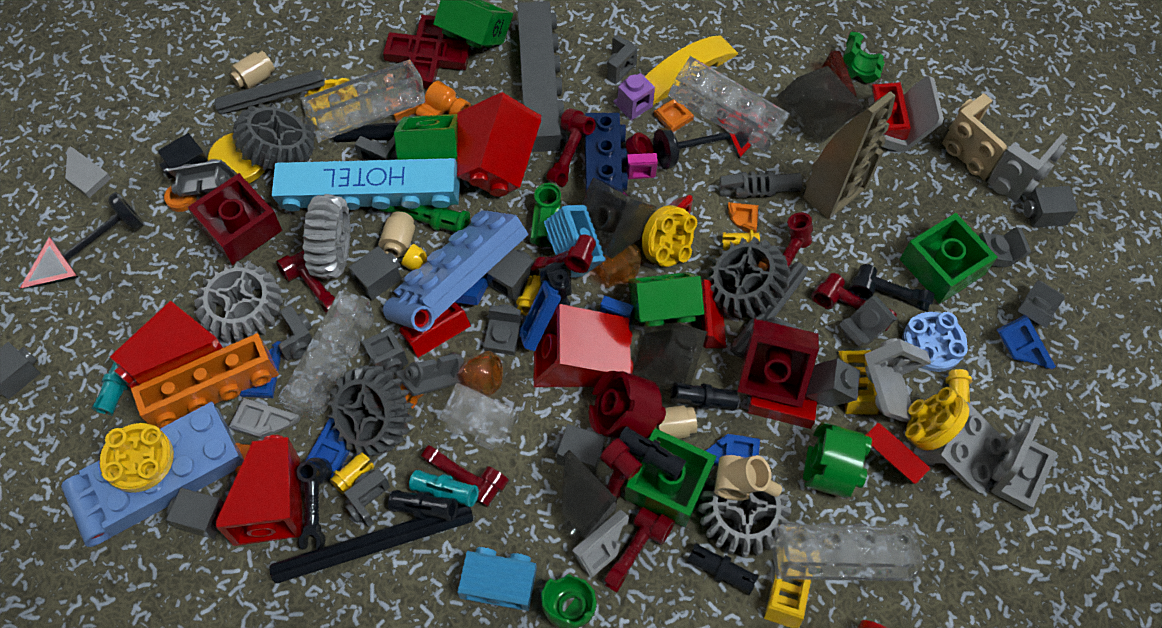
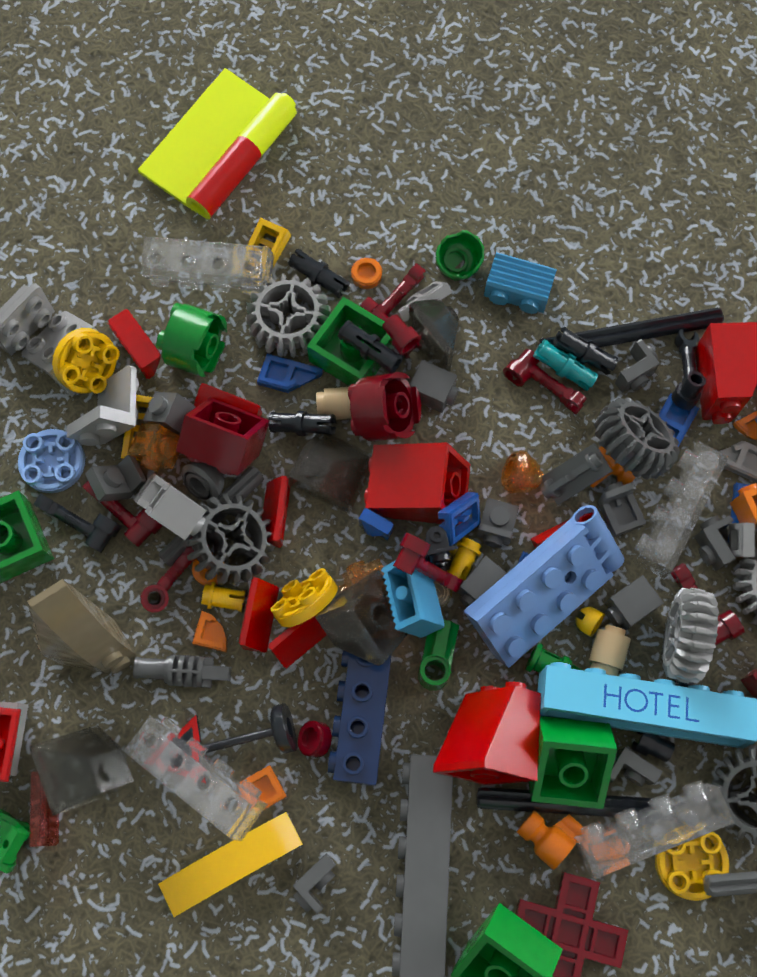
camera: 170 degrees left, 10 degrees up
(271, 330) = (742, 539): none -> light grey tile
(346, 477) = (655, 391): yellow pin -> none
(480, 416) = (531, 424): clear brick -> none
(577, 124) = (386, 758): dark red brick -> none
(631, 91) = (308, 816): medium lavender brick -> none
(641, 165) = (317, 709): dark pink tile -> none
(666, 297) = (323, 521): green brick -> none
(670, 577) = (366, 273): none -> orange tile
(707, 230) = (258, 616): none -> red slope
(742, 476) = (289, 316): tan piece -> none
(799, 245) = (170, 507): none -> light grey arch
(840, 343) = (155, 447): none -> clear orange brick
(959, 382) = (47, 403): yellow pin -> none

